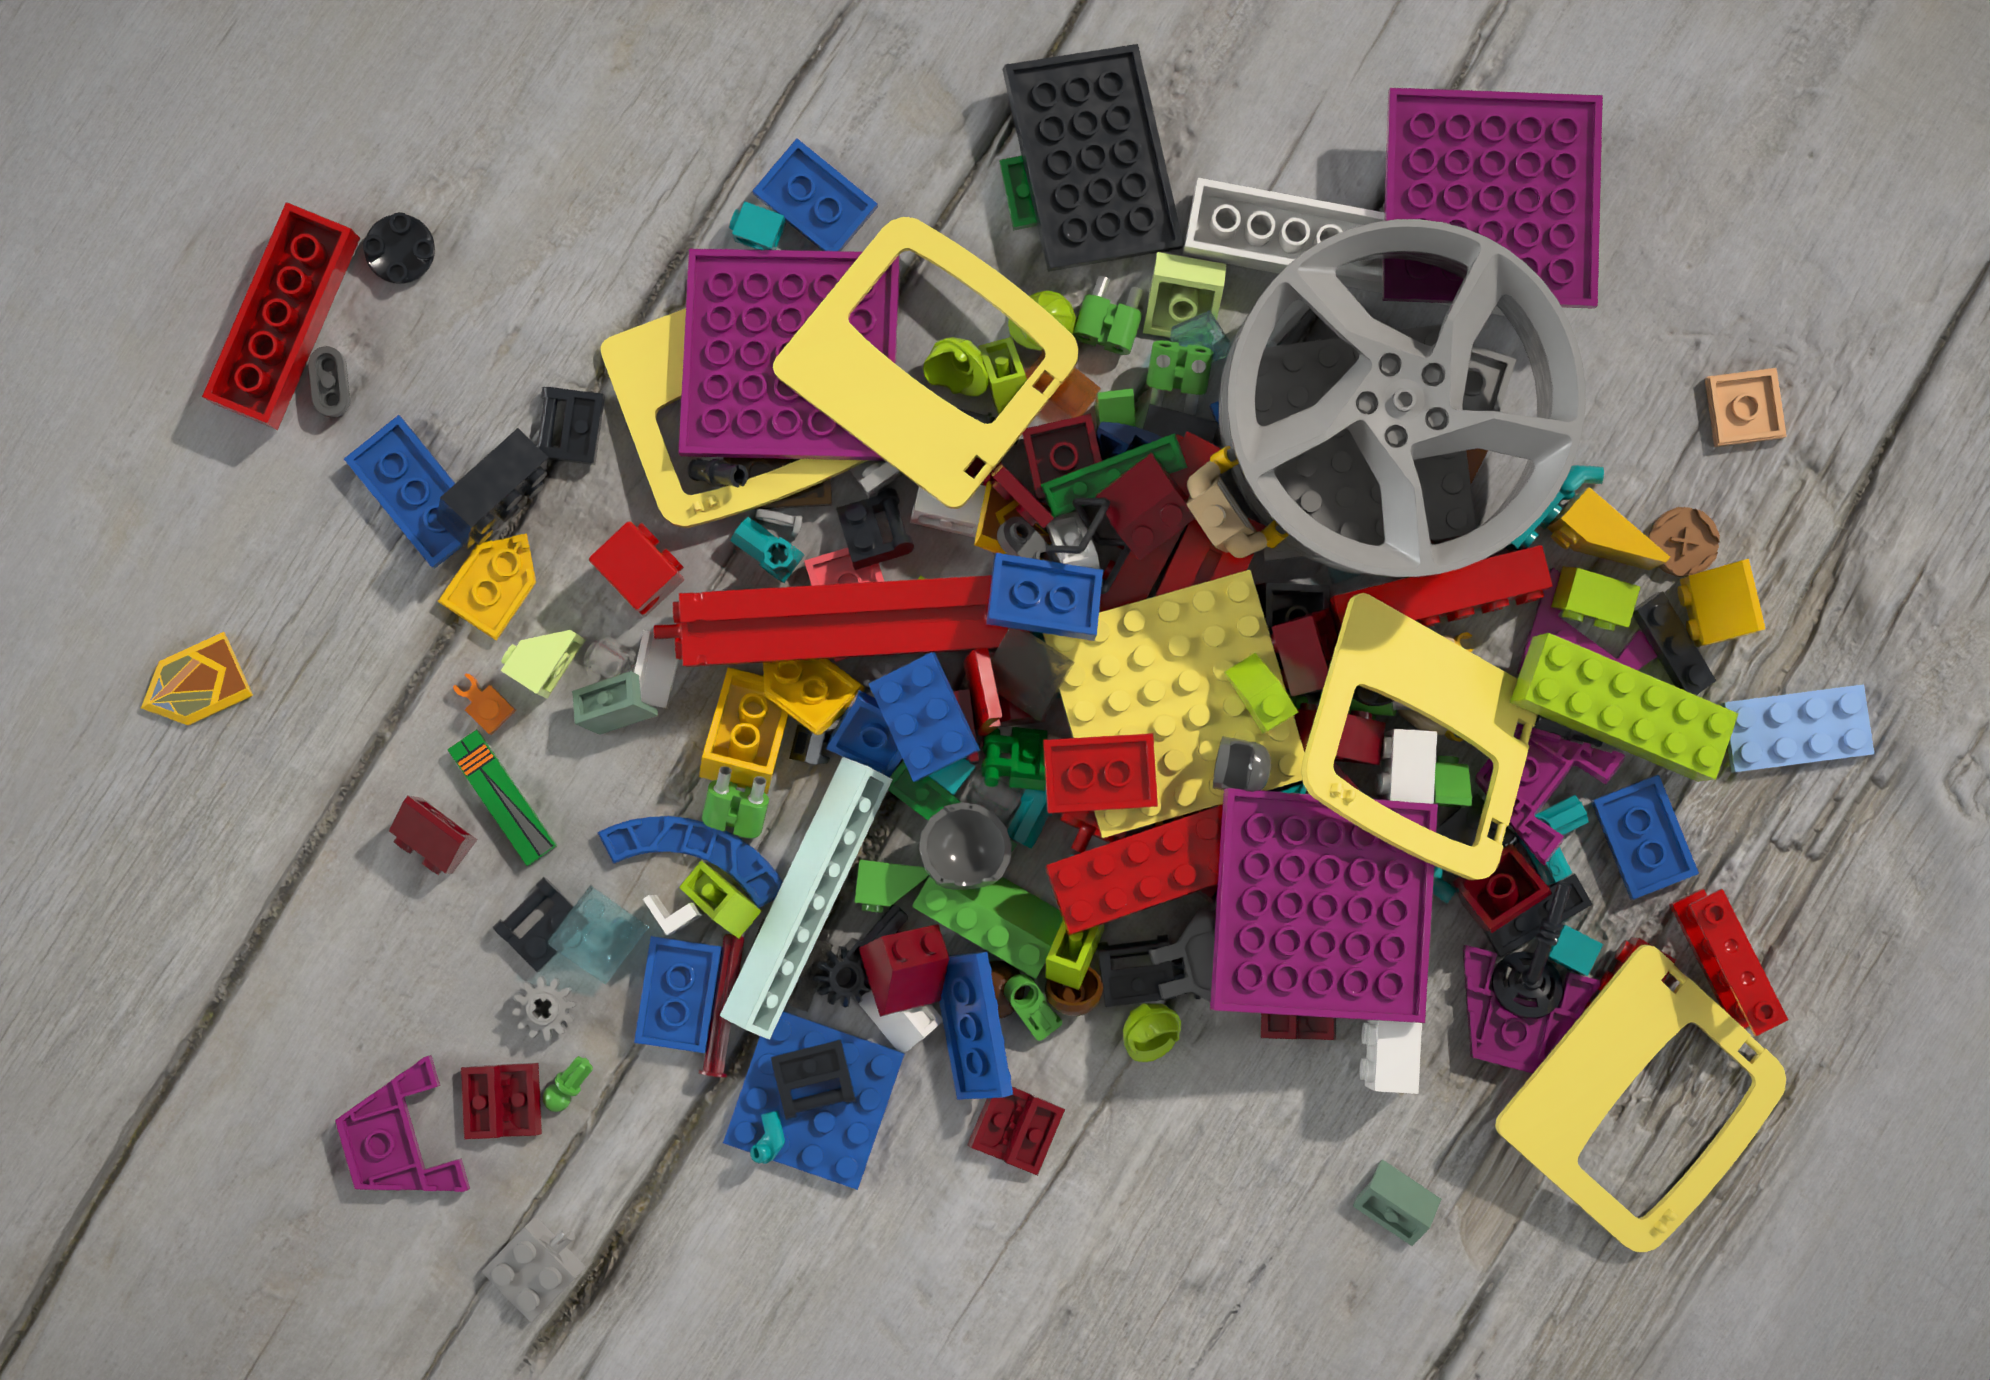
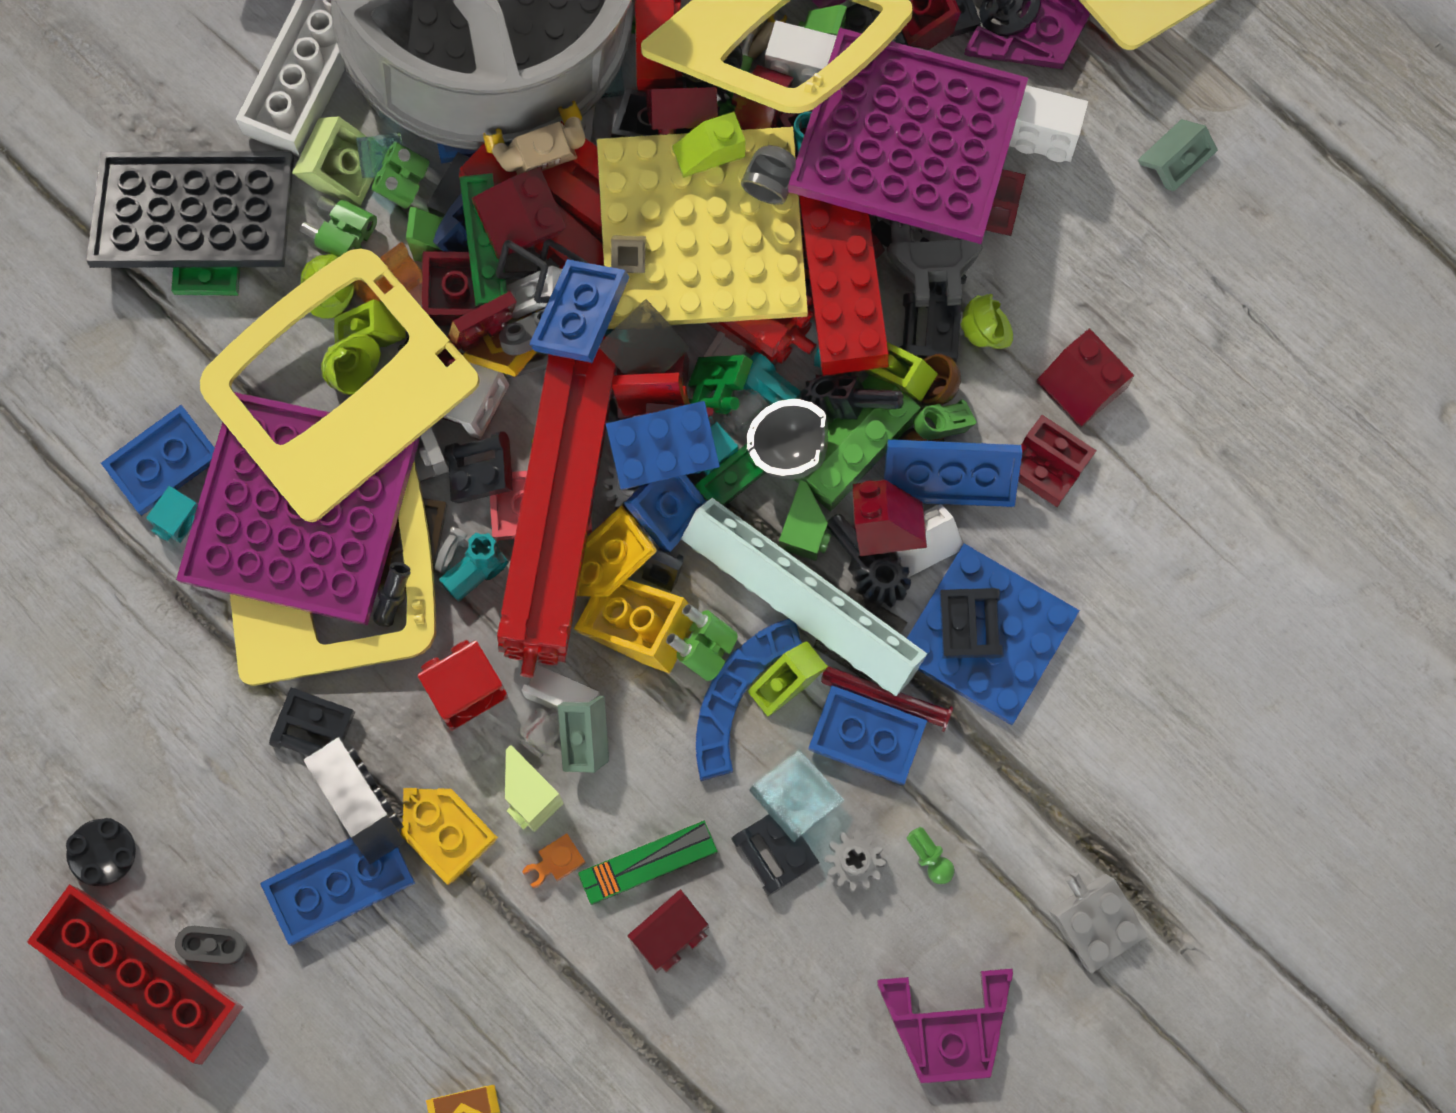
camera: 70 degrees left, 10 degrees down
(501, 1100) = (933, 922): dark red slope -> none
(672, 923) = (800, 719): white panel -> none
(771, 1141) = (1020, 673): teal arm -> none
(1029, 897) = (845, 396): none -> black gear
(1100, 773) = (749, 296): red plate -> none
(1113, 1148) = (1085, 378): none -> dark red slope
(1122, 633) = (628, 253): none -> dark tan slope

